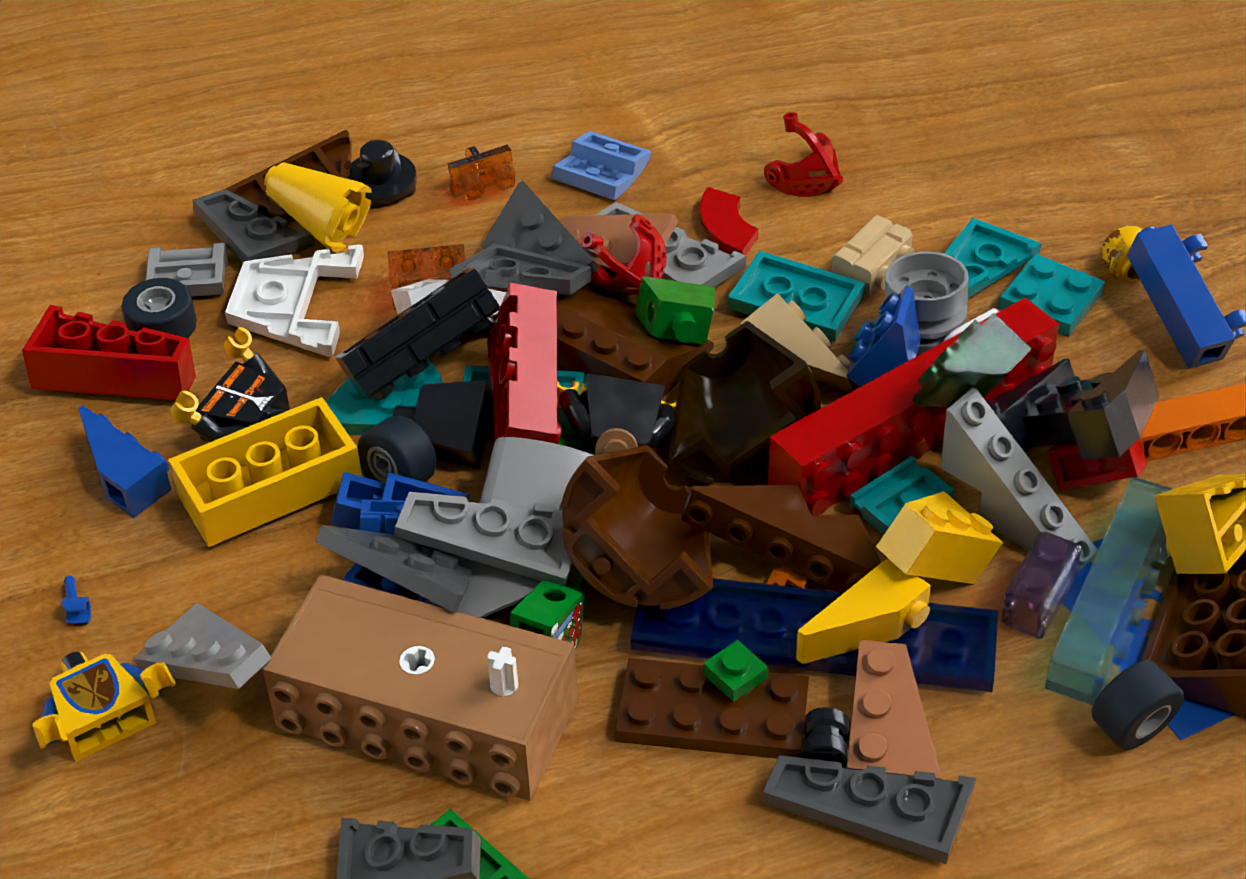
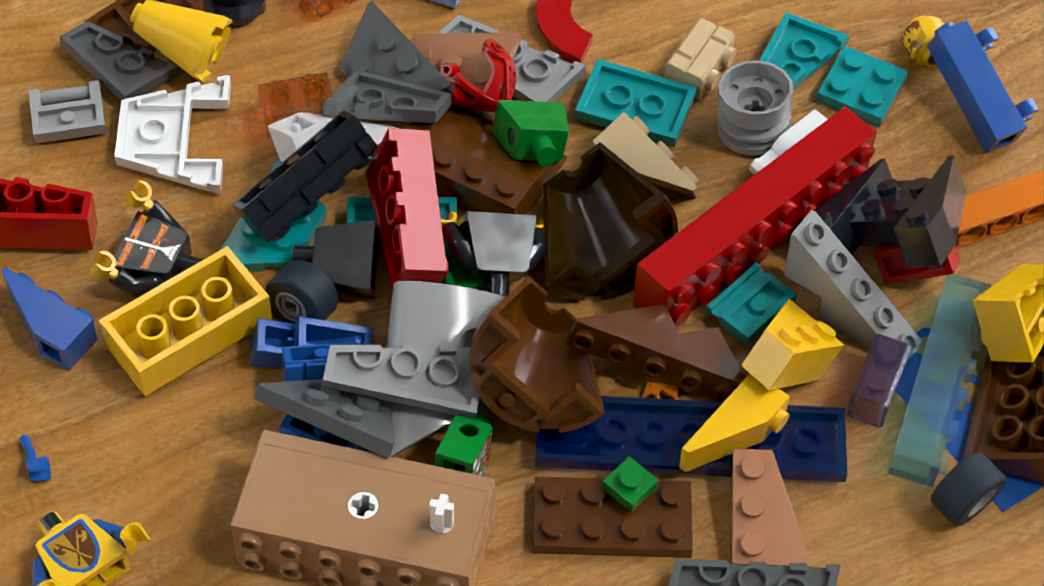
camera: 10 degrees left, 10 degrees up
(160, 306) = (52, 157): black wheel -> none
(205, 650) = (168, 504): light grey wing -> none
(615, 440) = (501, 279): medium nougat plate -> none
(826, 735) = (712, 537): black wheel -> none
(886, 341) = (724, 156): blue slope -> none
(974, 360) = (810, 184): slope -> none

